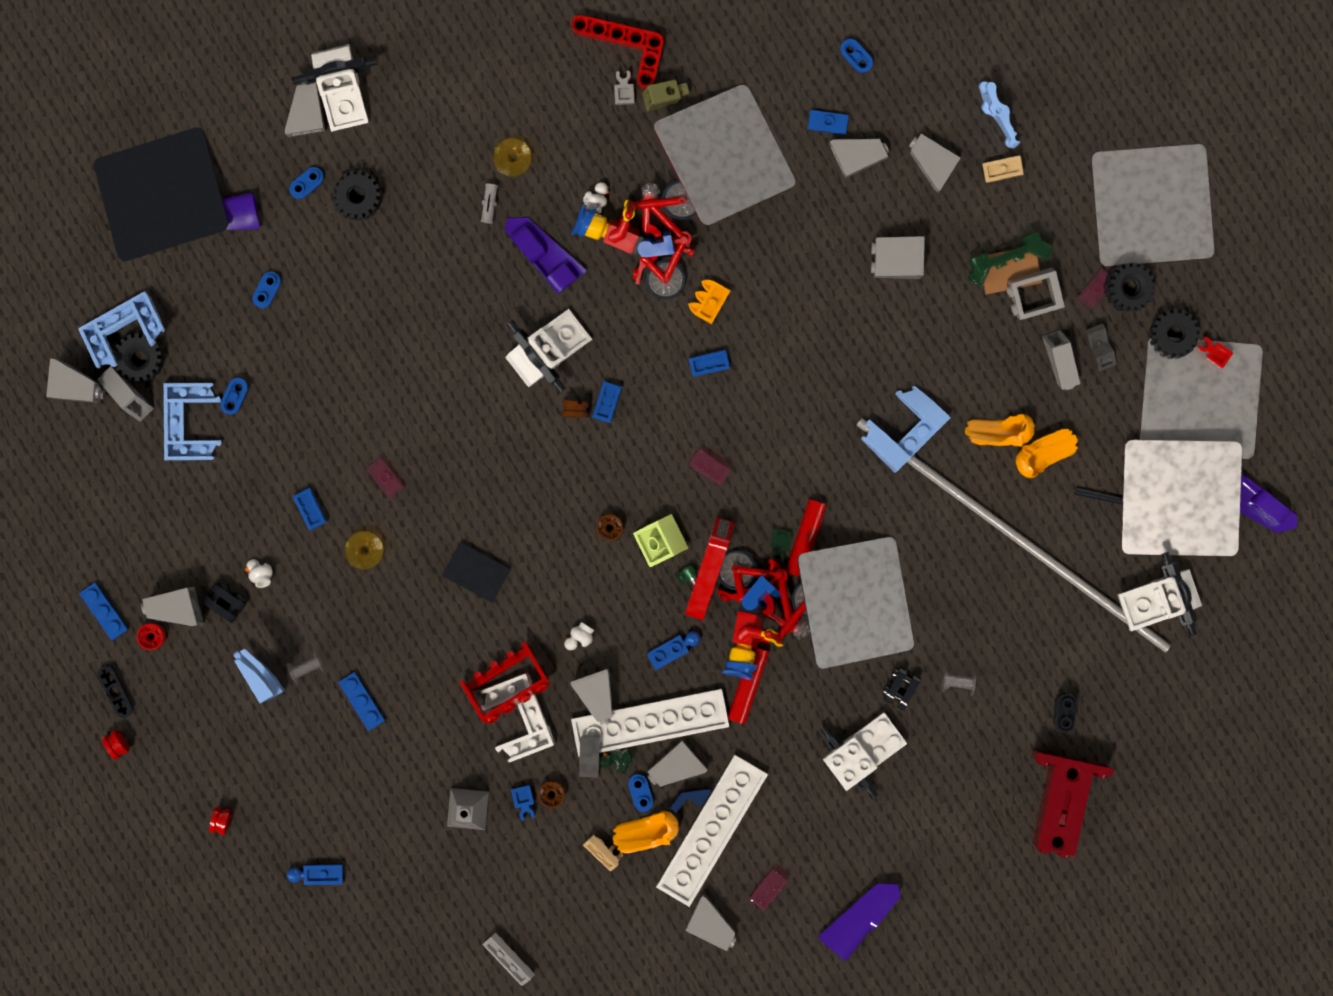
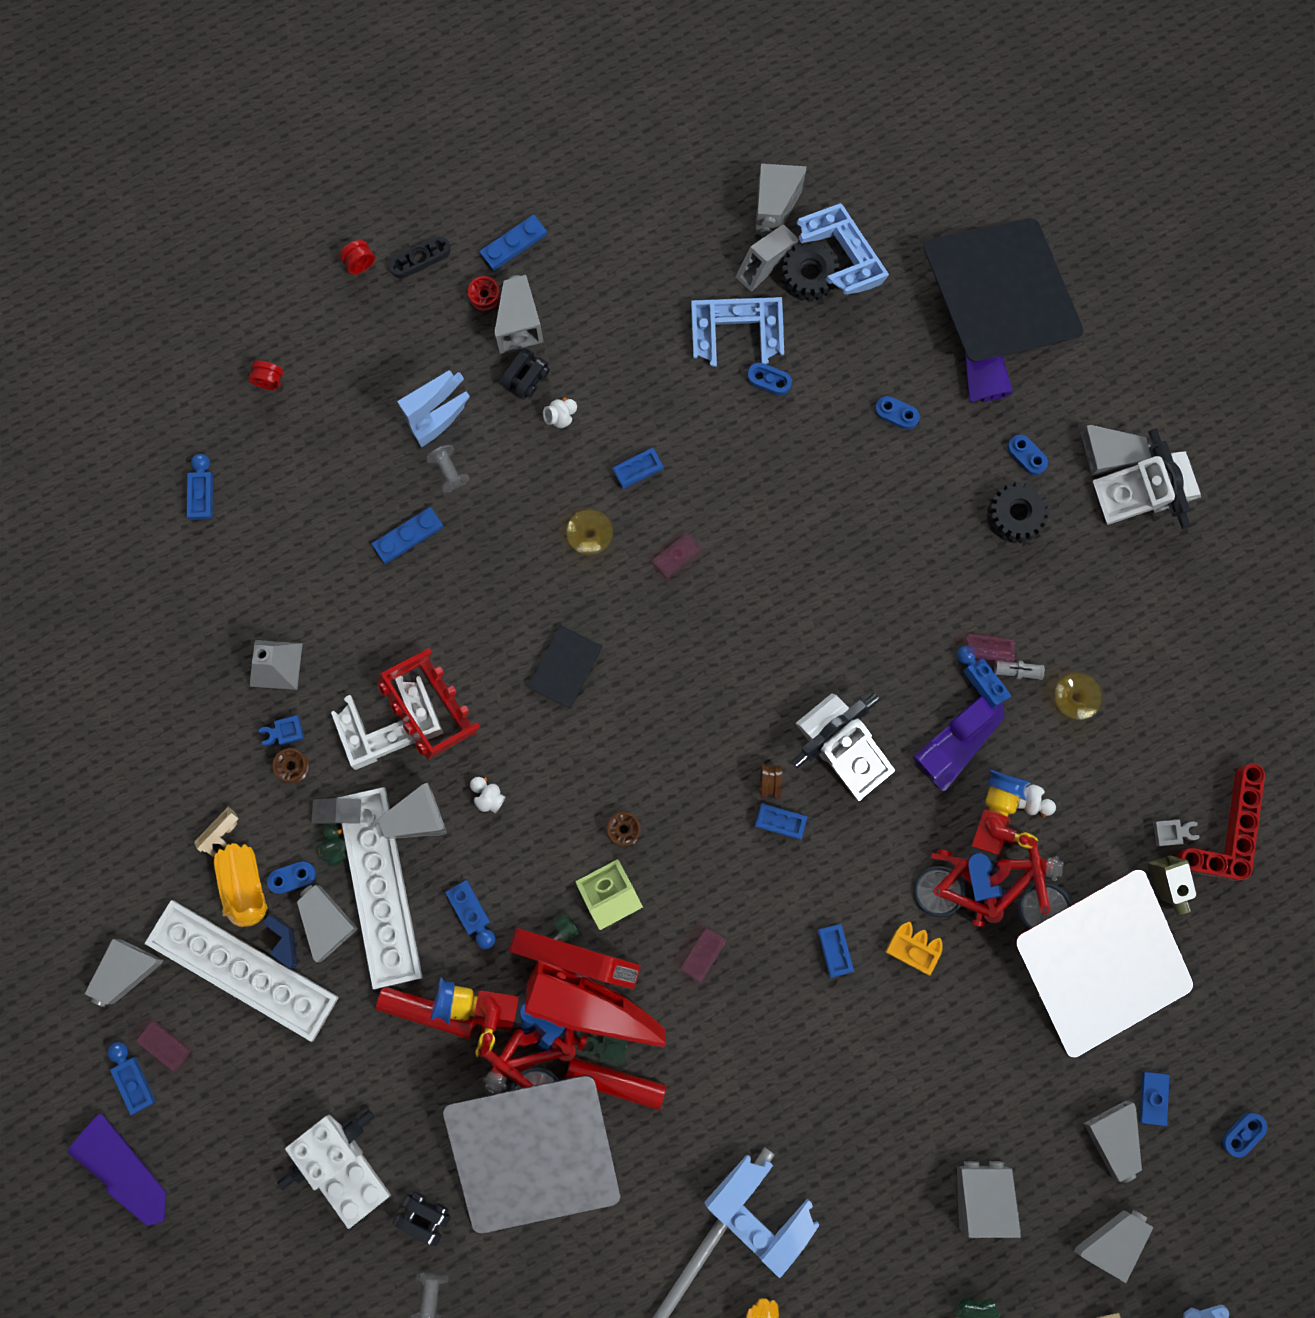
camera: 90 degrees right, 10 degrees down
(470, 225) = (991, 647): none -> clear pink plate
(494, 233) = (983, 678): none -> blue plate
(508, 959) = (88, 719): light grey plate -> none
(746, 557) = (588, 1006): none -> red wedge
(792, 915) = (130, 1079): none -> blue plate

